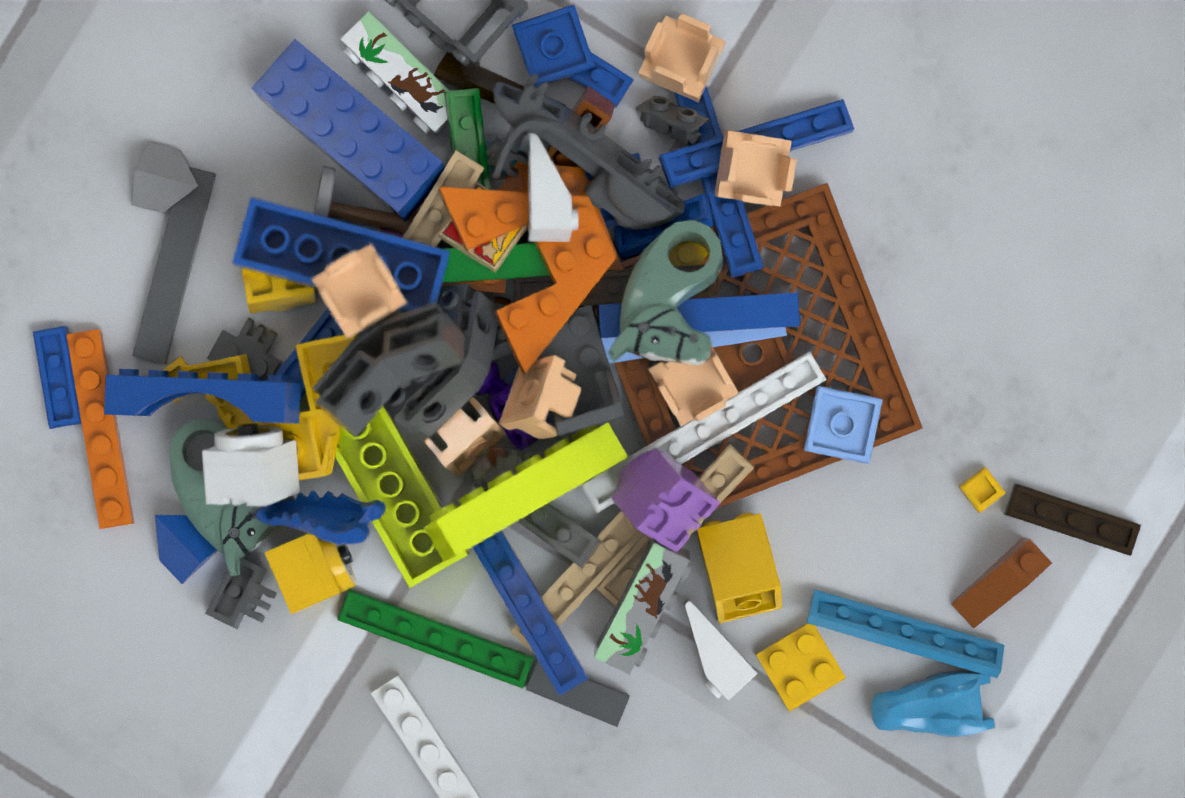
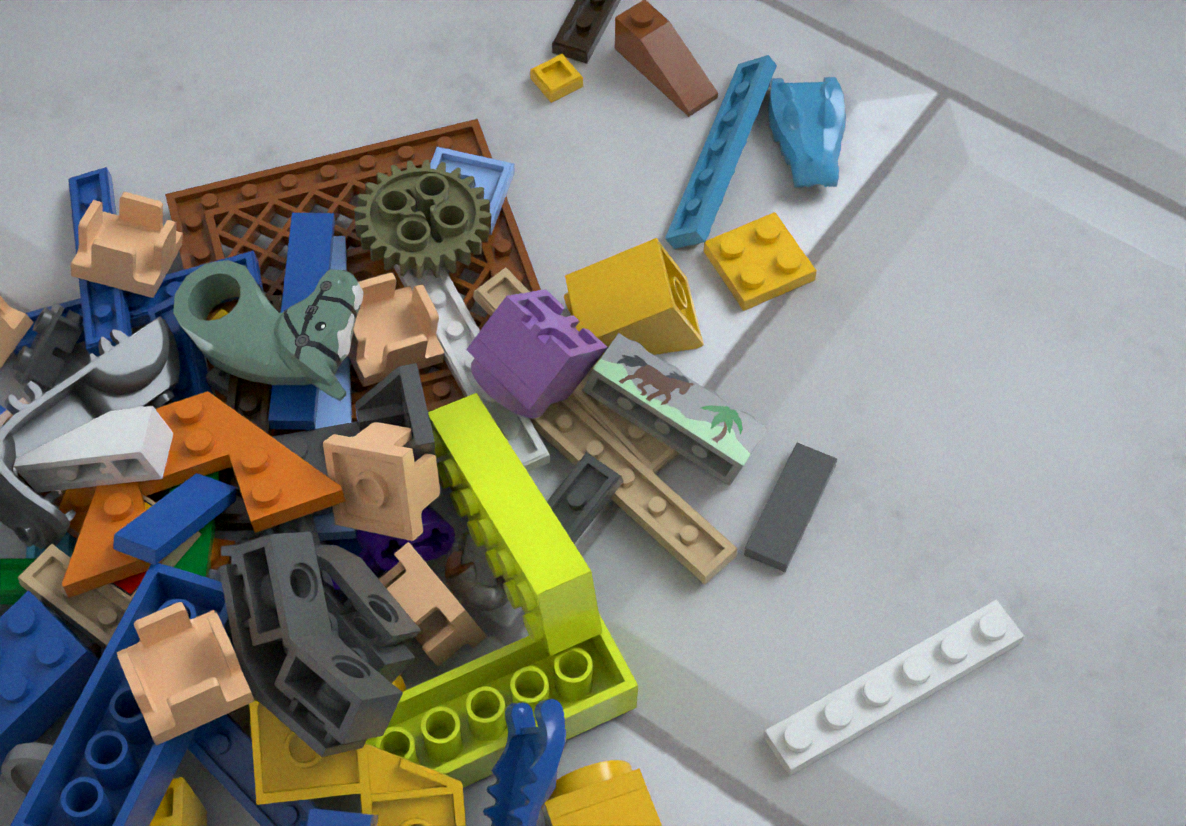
camera: 80 degrees left, 30 degrees down
(435, 638) = (711, 684): green tile -> none
(494, 258) = (174, 518): none -> blue tile
(530, 613) = (689, 534): blue plate -> none
(719, 659) = (743, 340): white slope -> none
(812, 424) = (400, 235): none -> olive gear

